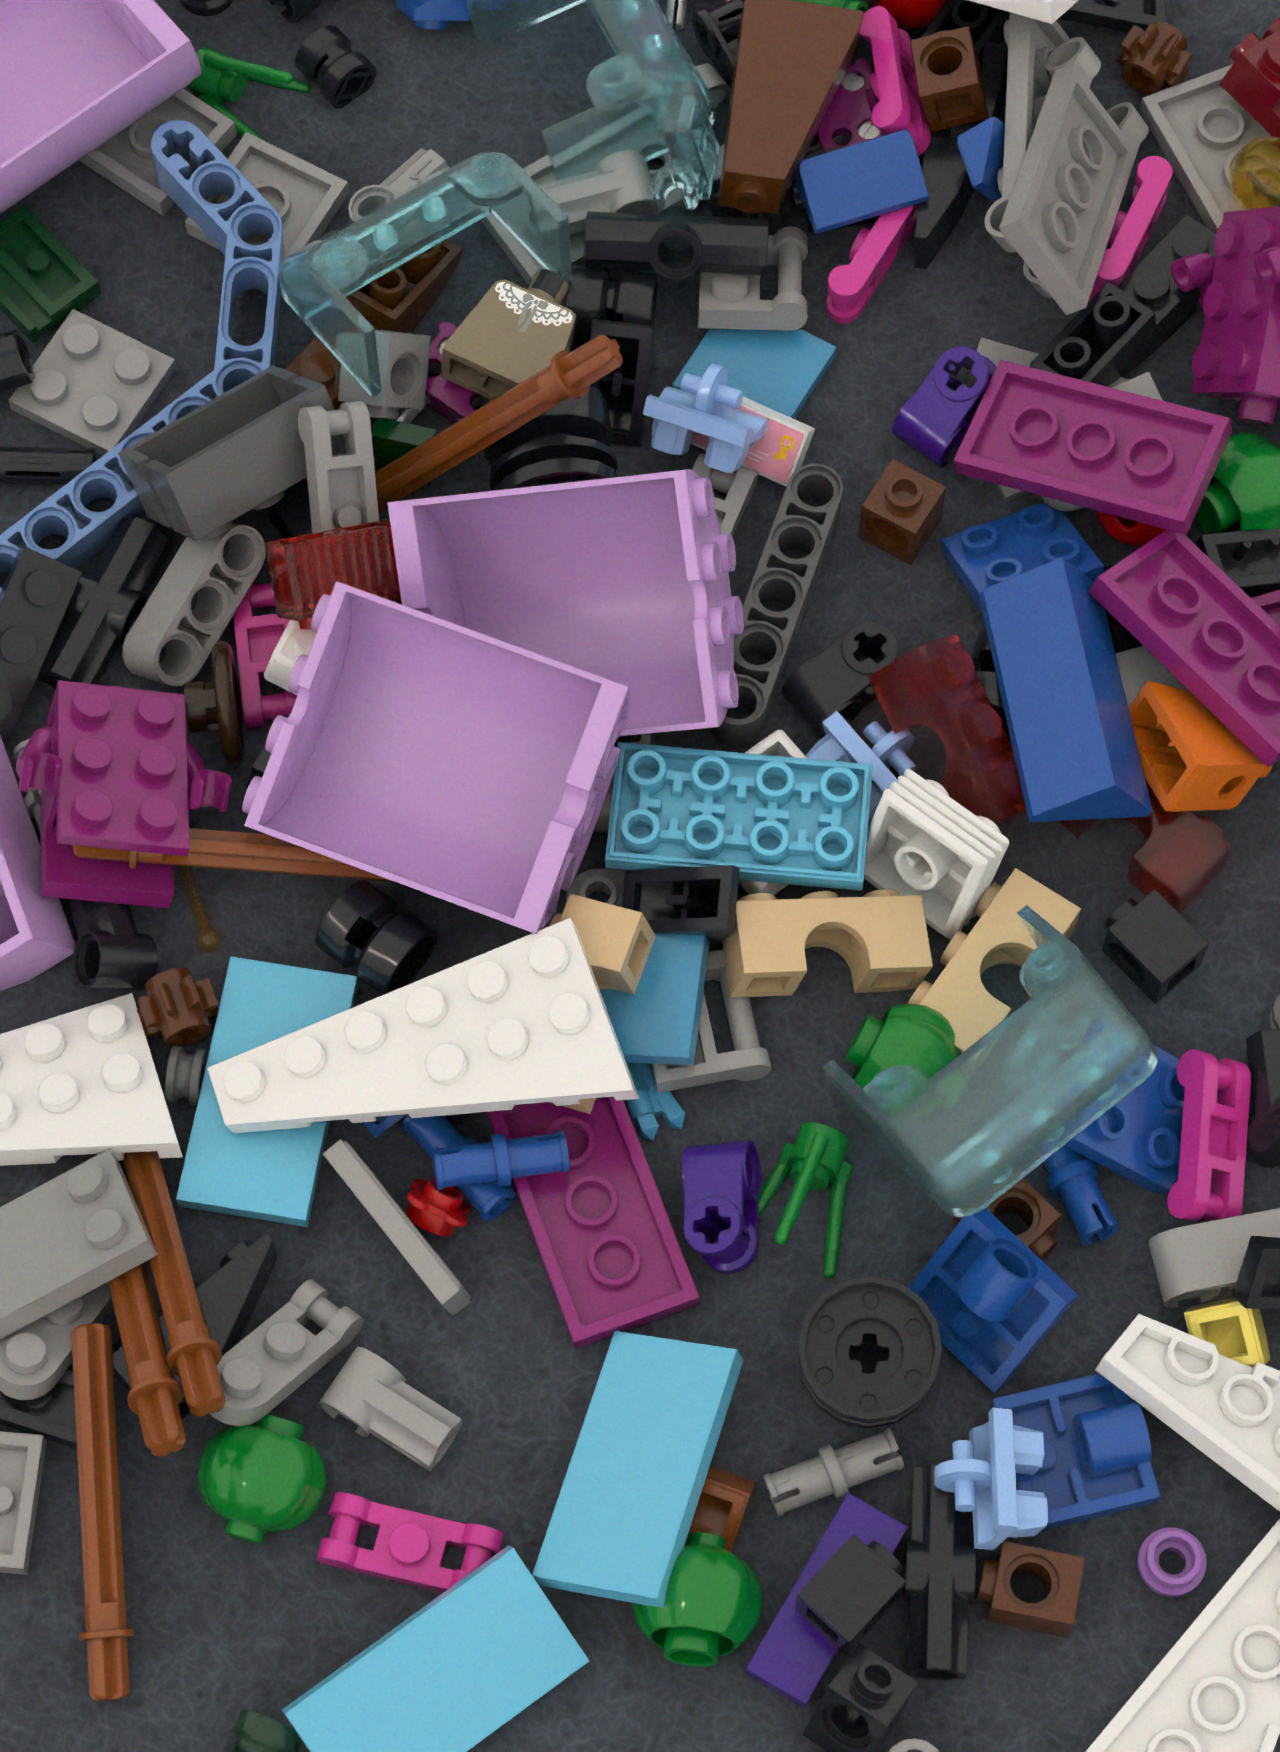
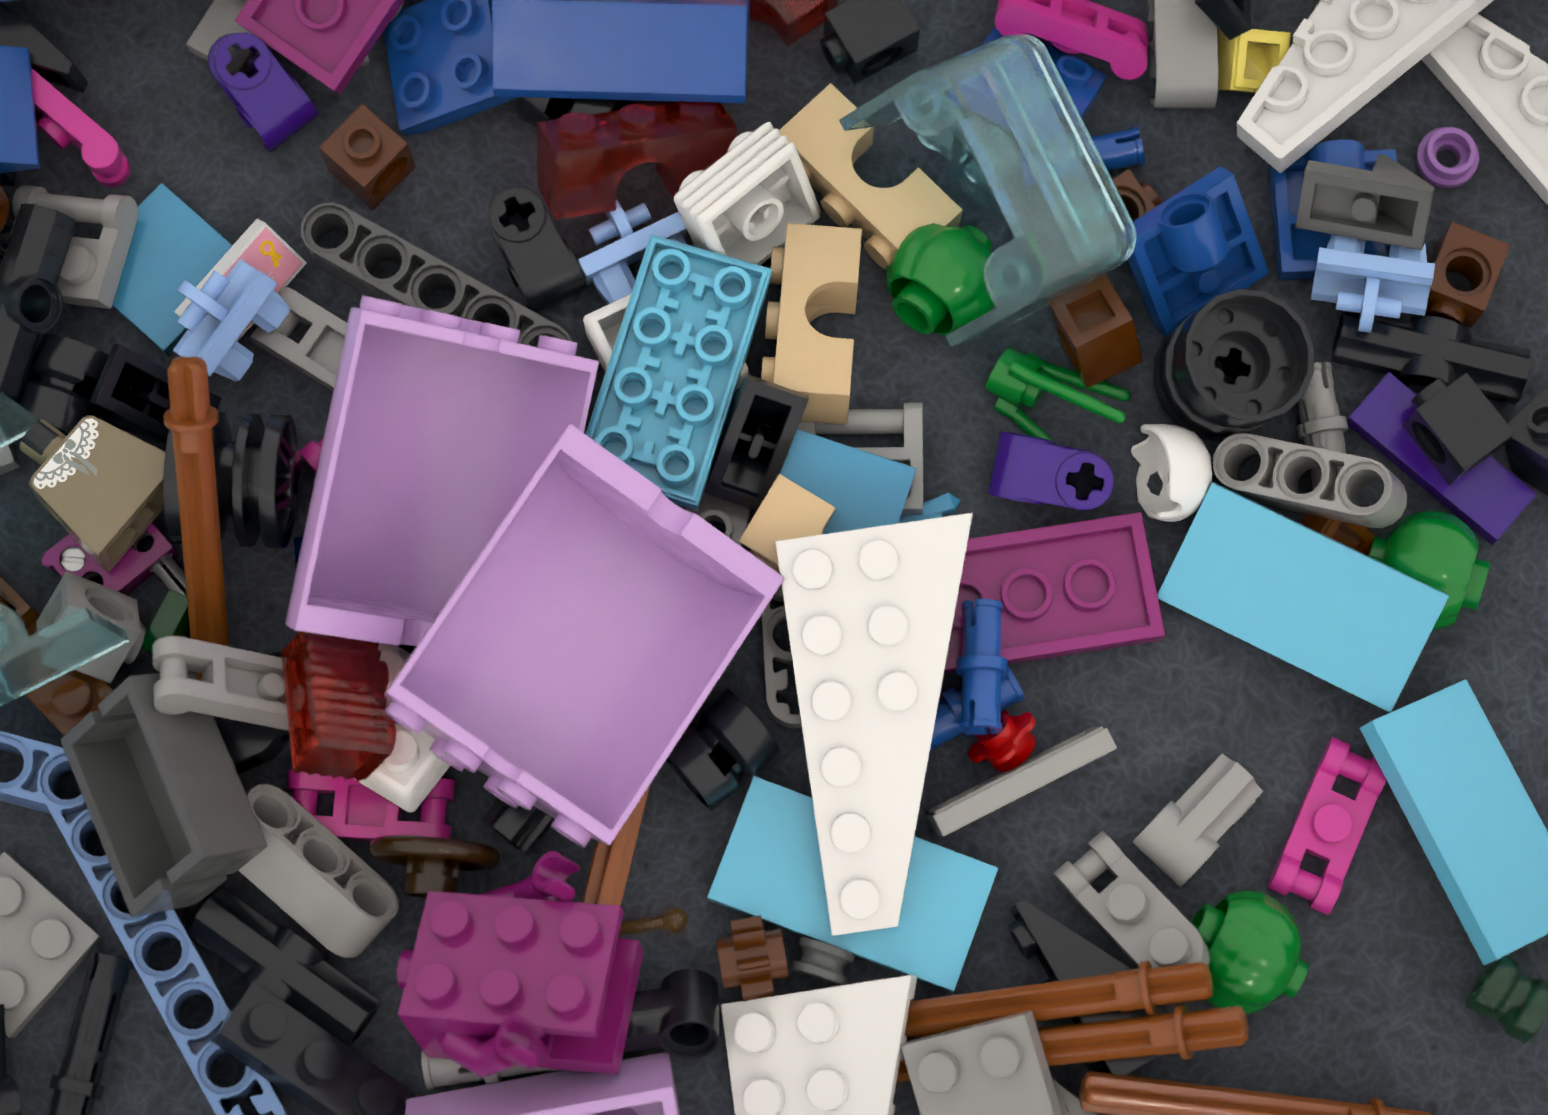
camera: 80 degrees left, 10 degrees up
(748, 1320) = (1182, 466): none -> white hair
(761, 1451) = (1334, 496): none -> light grey beam
(878, 1214) = (1096, 331): none -> reddish brown brick
(1069, 1447) = (1374, 205): none -> dark grey slope

